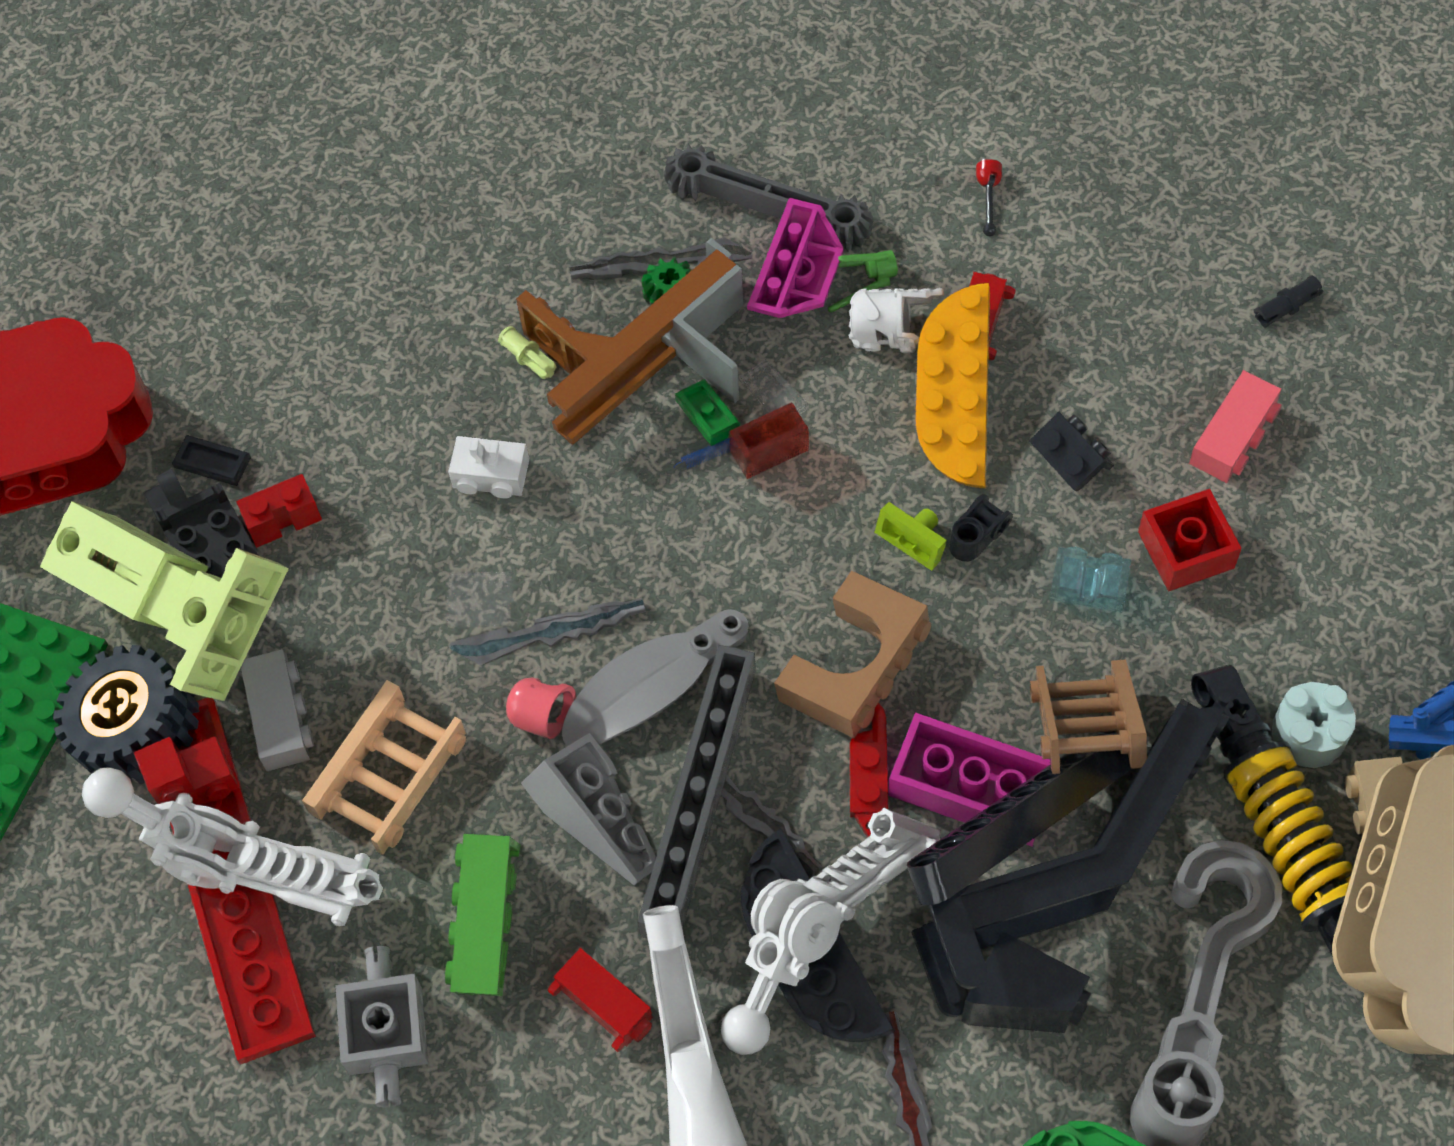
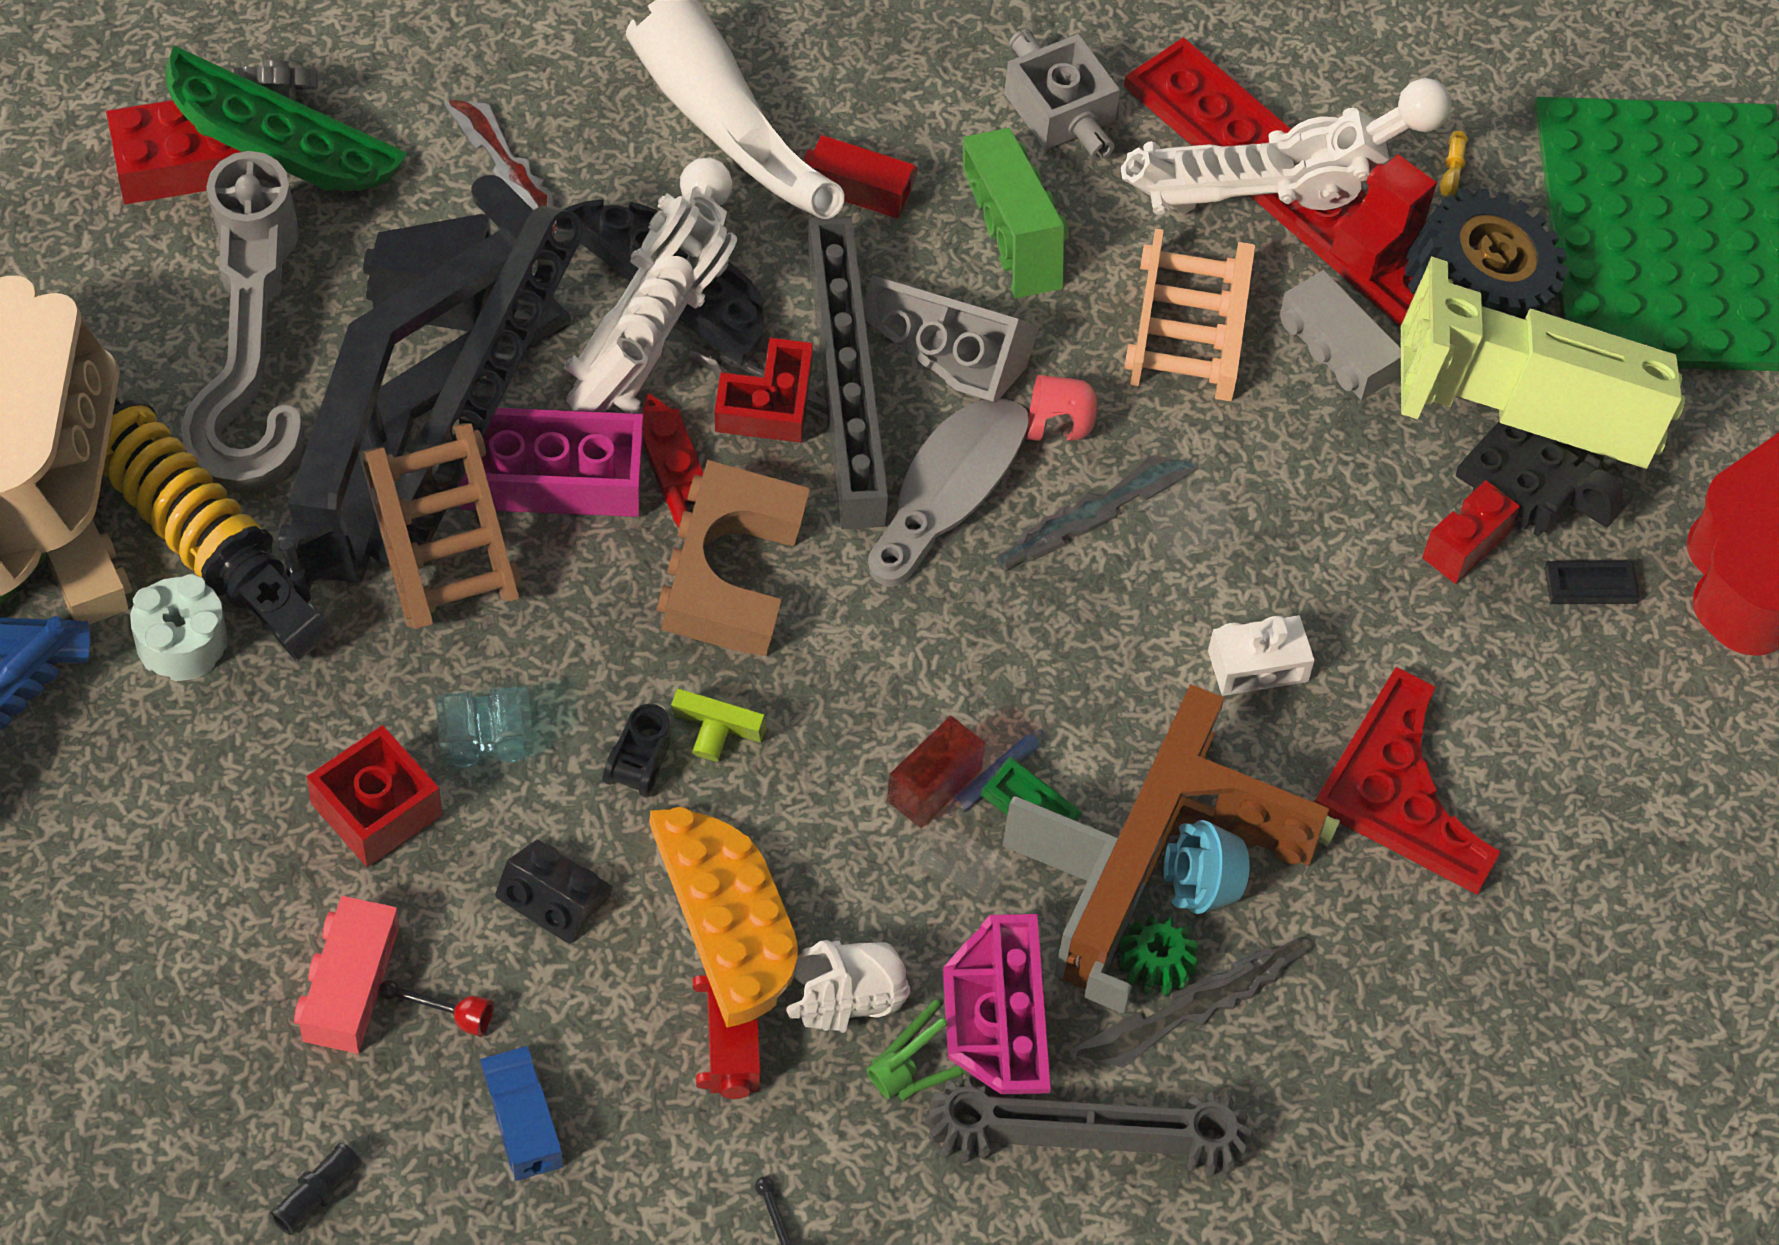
camera: 150 degrees right, 5 degrees down
(88, 842) = (1454, 161): none -> yellow piece
(451, 356) = (1388, 793): none -> red plate
(609, 311) = (1206, 867): none -> medium azure cone
(771, 776) = (768, 405): none -> red brick
(1138, 306) = (522, 1113): none -> blue piece
(1156, 382) = (470, 1014): none -> hinge

